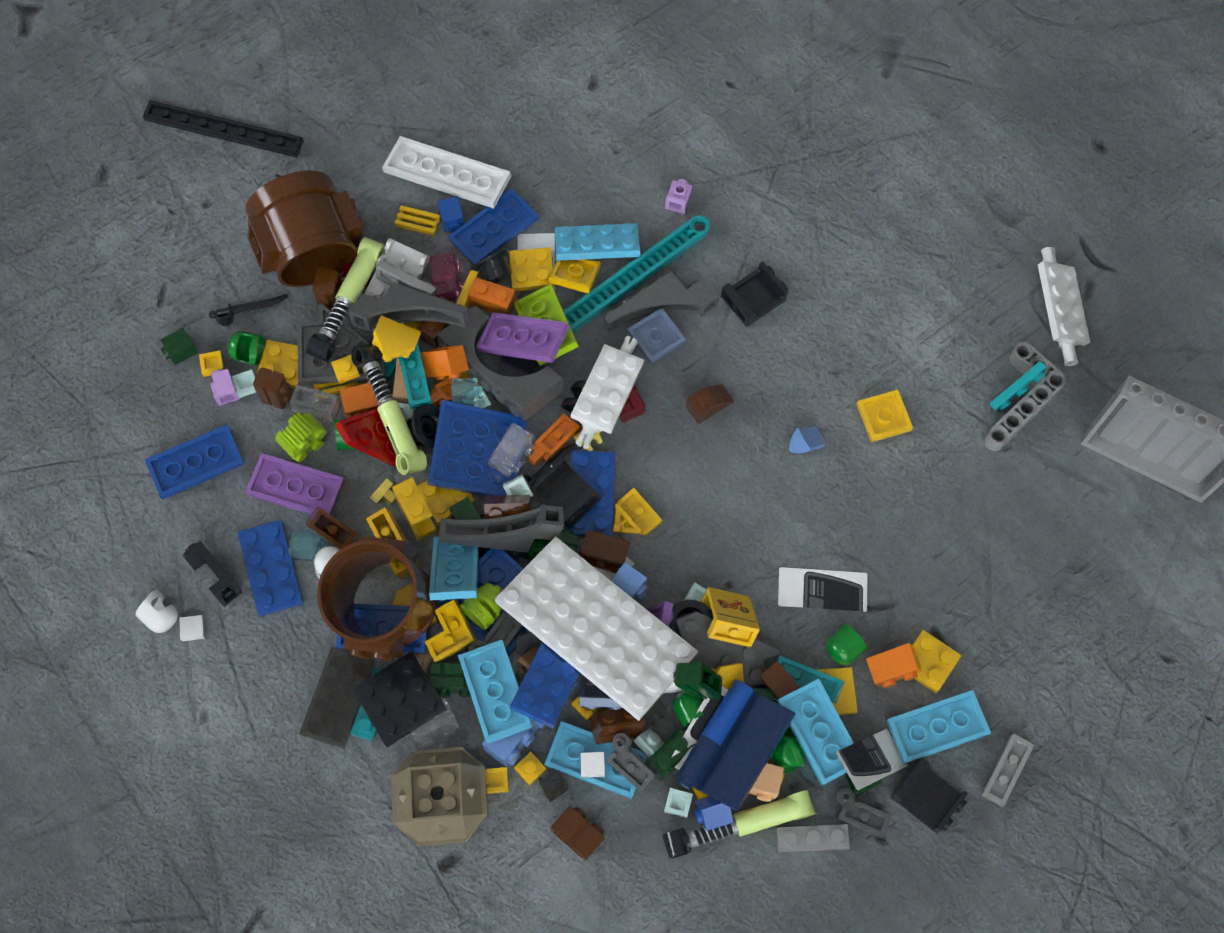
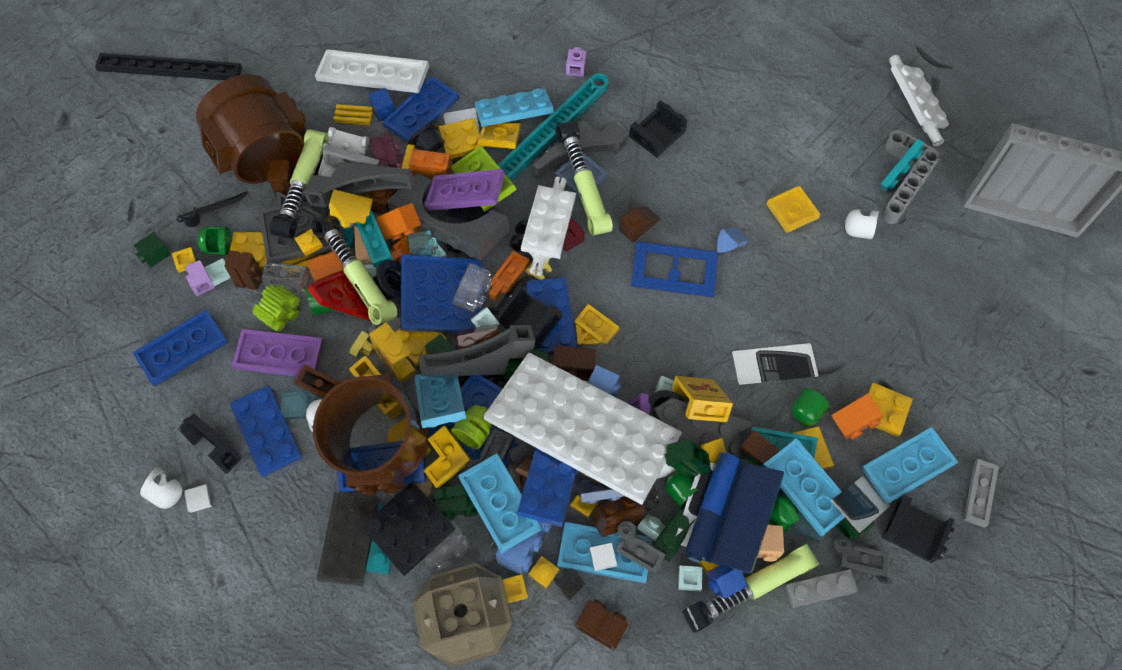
camera: 10 degrees left, 5 degrees down
(663, 393) = (597, 218): none -> piece
(731, 481) = (673, 285): none -> blue door
(953, 449) = (860, 225): none -> white helmet

